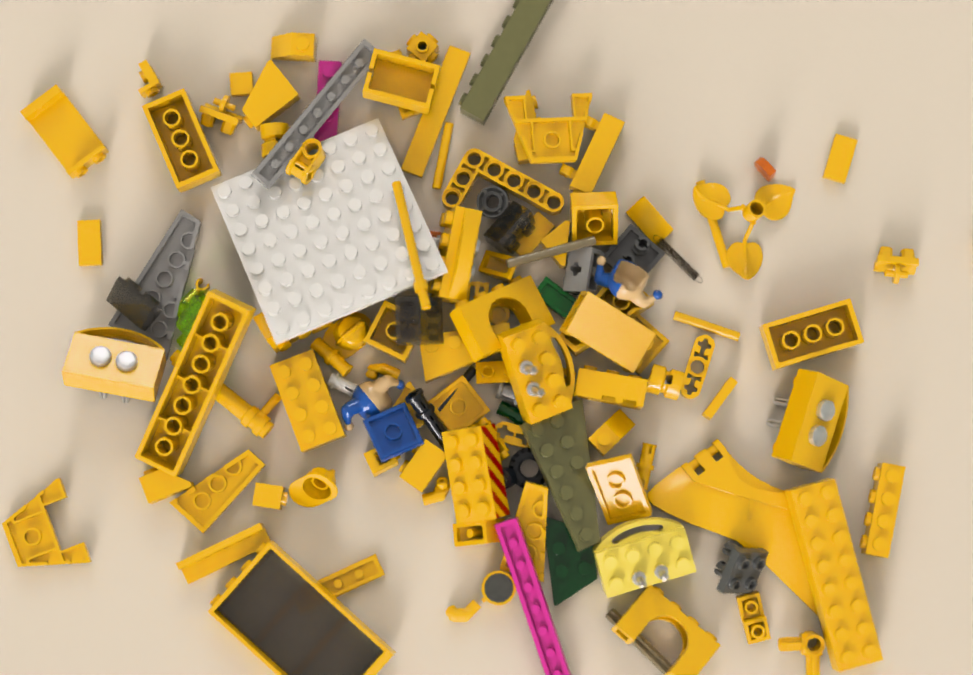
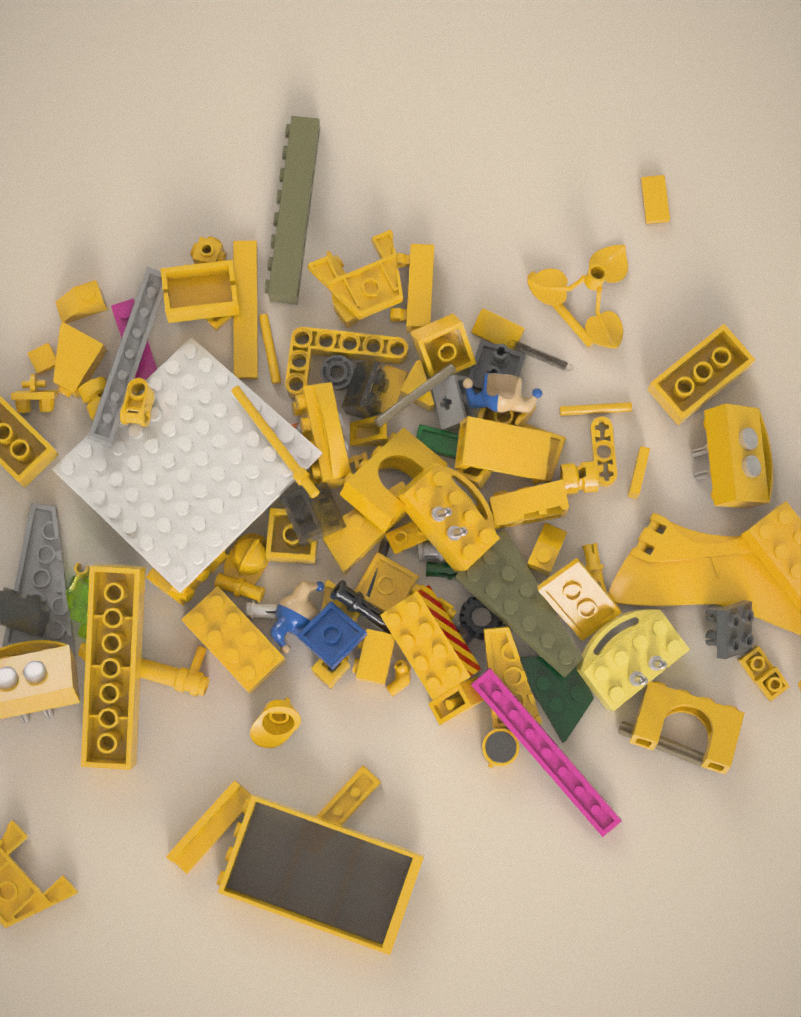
camera: 20 degrees left, 5 degrees down
(160, 485) = (120, 784): yellow slope -> none
(214, 494) = (177, 772): yellow wing -> none
(269, 496) = (233, 750): yellow brick -> none
(381, 368) = (294, 578): yellow arm -> none
(462, 614) = (475, 789): yellow arm -> none
(499, 314) = (389, 477): yellow tile -> none
(509, 439) = (453, 596): yellow beam -> none
(765, 168) = (588, 236): orange tile -> none
(896, 266) = (752, 278): yellow hips -> none

